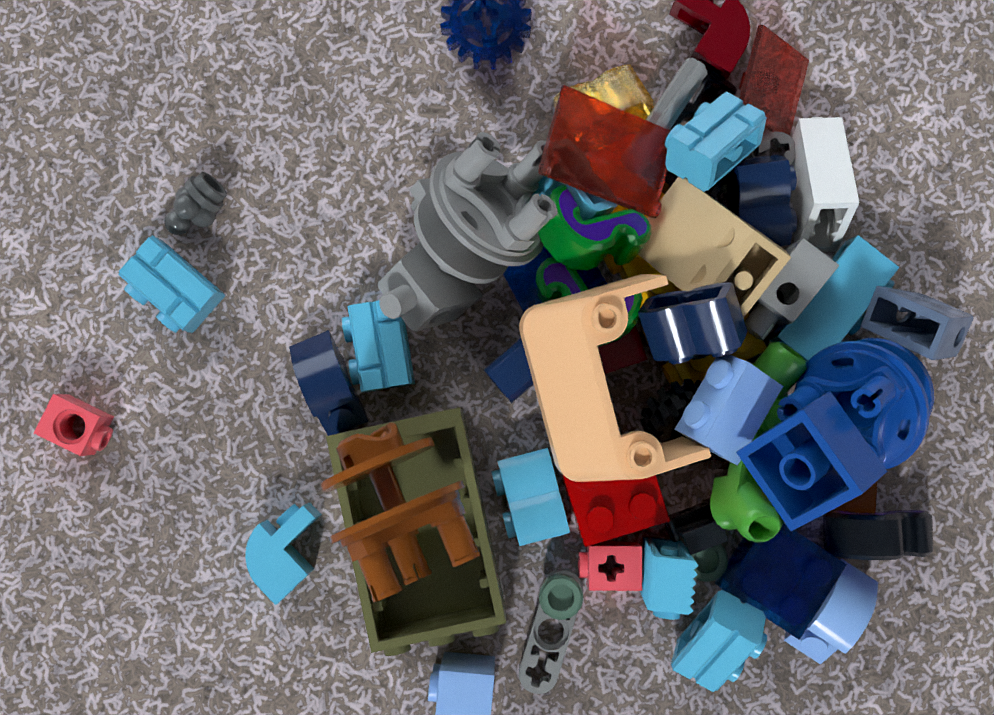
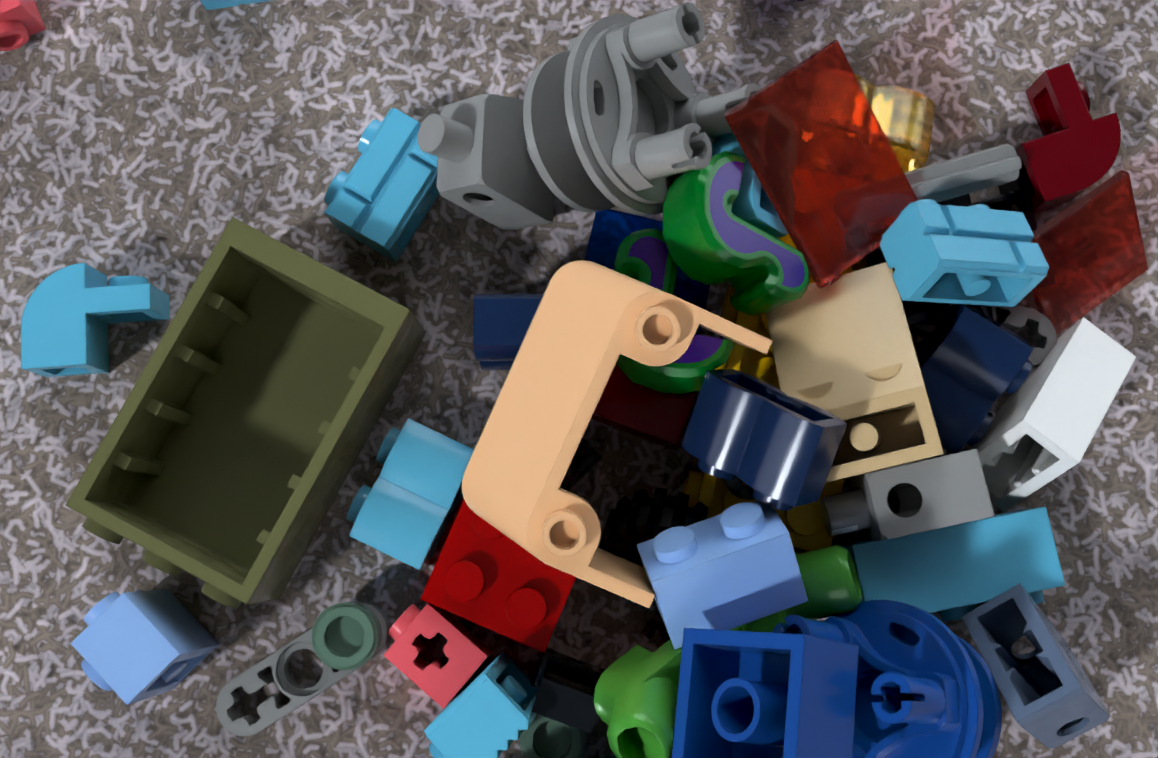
camera: 35 degrees right, 5 degrees down
(326, 384) = (292, 173): dark blue brick -> none
(399, 523) = (219, 362): dark orange piece -> none

